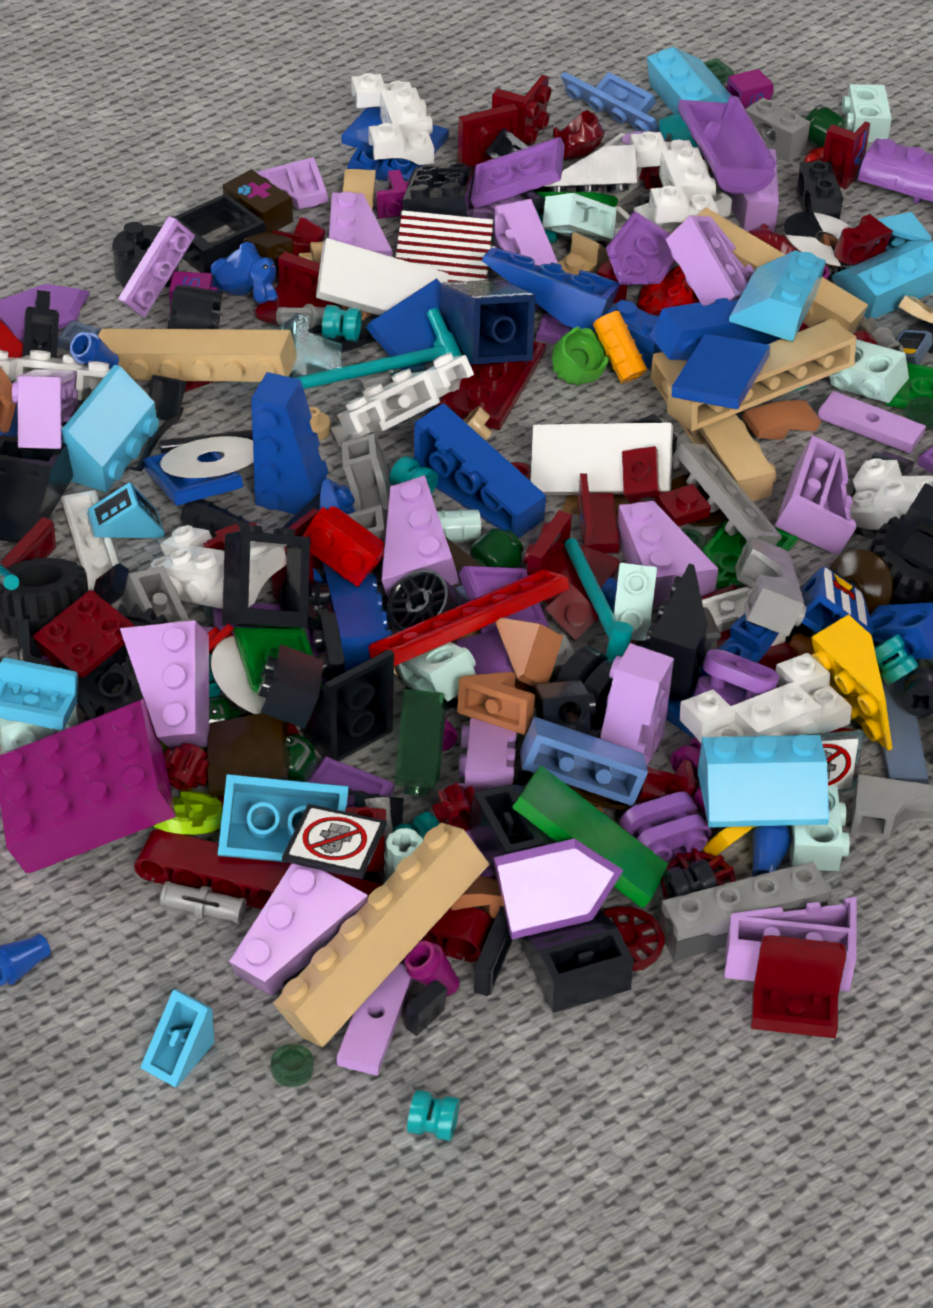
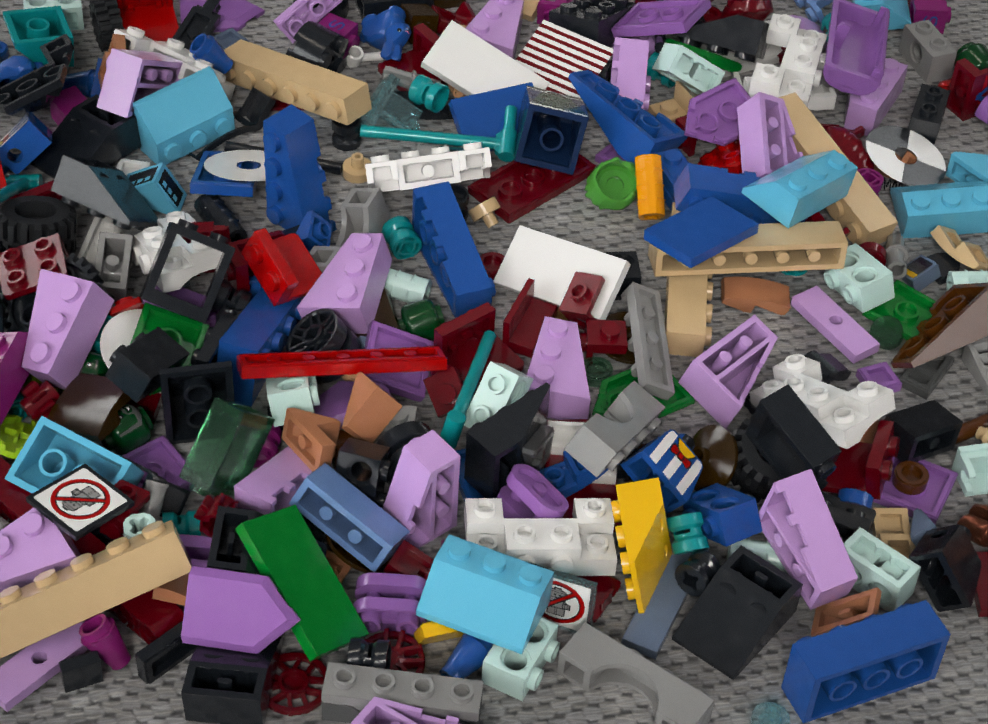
camera: 25 degrees right, 0 degrees up
(86, 529) = (103, 191): none -> black slope
(112, 584) = (90, 240): black tile -> none
(229, 307) = (357, 56): none -> white piece
(861, 242) = (933, 166): dark red leg -> none

